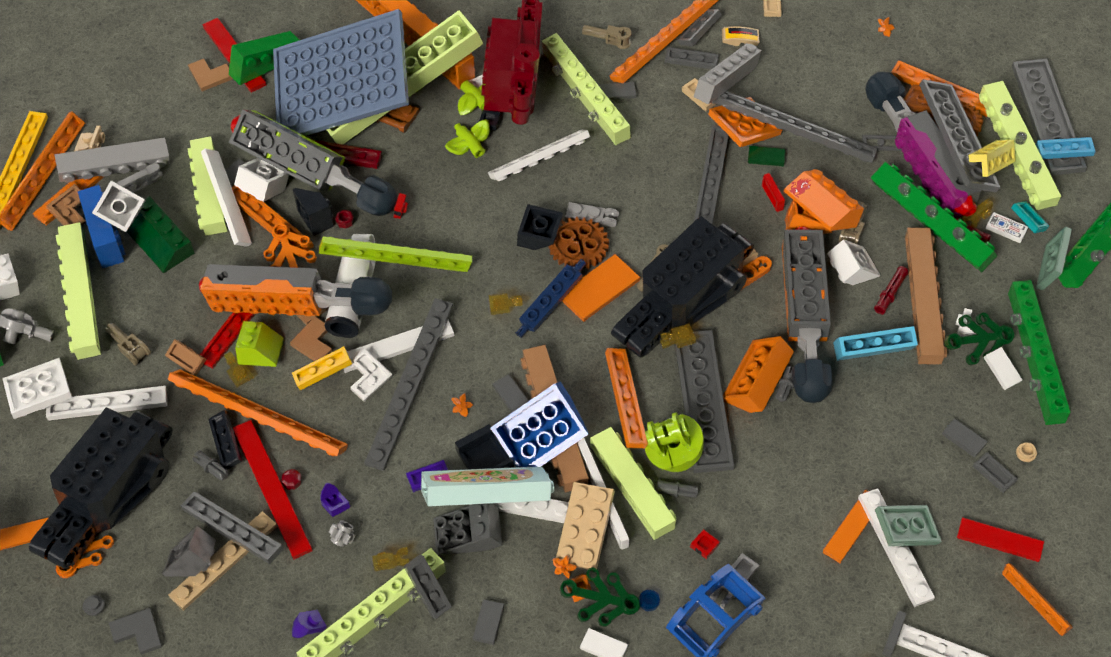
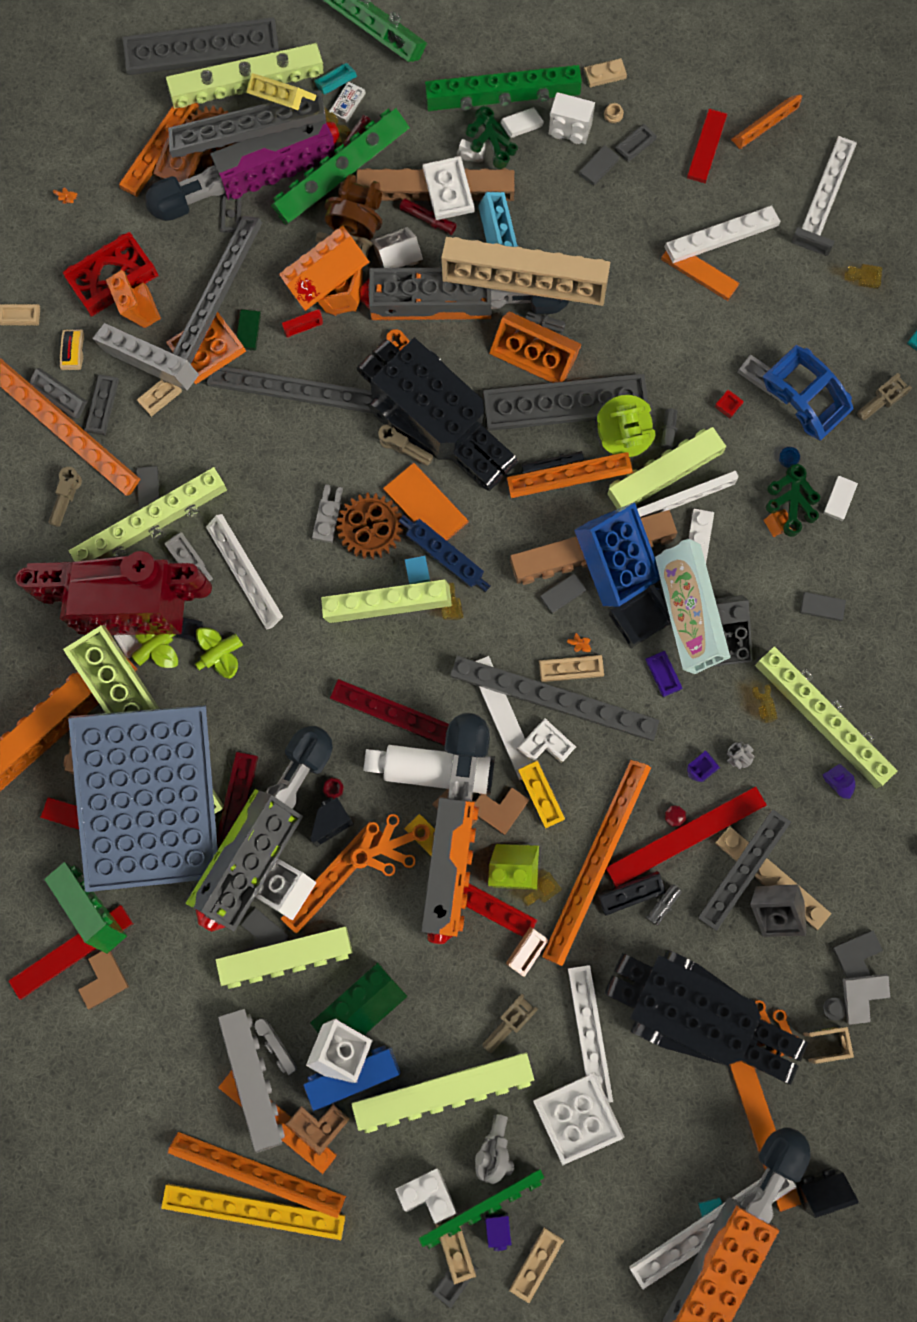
camera: 90 degrees left, 20 degrees up
(48, 597) = (845, 1043): none -> tan piece
(90, 140) = (219, 1119): tan bracket -> none
(103, 626) = (859, 992): none -> light grey tile
(226, 197) = (309, 929): white tile -> none
(395, 254) = (401, 724): lime plate -> none
(401, 206) = (319, 721): red plate -> none
(418, 239) = (390, 712): none -> dark red plate
(427, 586) = (802, 661): dark grey plate -> none
(438, 399) = (571, 668): none -> tan tile
(504, 250) = (386, 601): none -> yellowish green brick
(533, 278) = (417, 570): none -> dark azure brick
(538, 227) = (354, 565): black slope -> none
(551, 117) = (184, 553): none -> light grey hinge
(563, 567) = (763, 534): orange plant -> none
(585, 525) = (721, 513): tan plate -> none
(640, 388) = (553, 462): none -> black pin
(680, 336) = (495, 419): clear yellow plate -> none
(782, 67) = (133, 302): none -> orange panel
(819, 45) = (109, 255): none -> red fence
(820, 342) = (525, 271): none -> tan brick
(896, 233) = (355, 208): none -> reddish brown piece
(908, 525) = (704, 219): sand green tile -> none
(917, 298) = (448, 188): none -> white tile
(1007, 405) = (571, 118): none -> white brick
(1054, 258) = (396, 58): sand green tile -> none
(1065, 148) = (253, 30): dark azure plate -> none
(1073, 447) = (605, 72): none -> tan plate

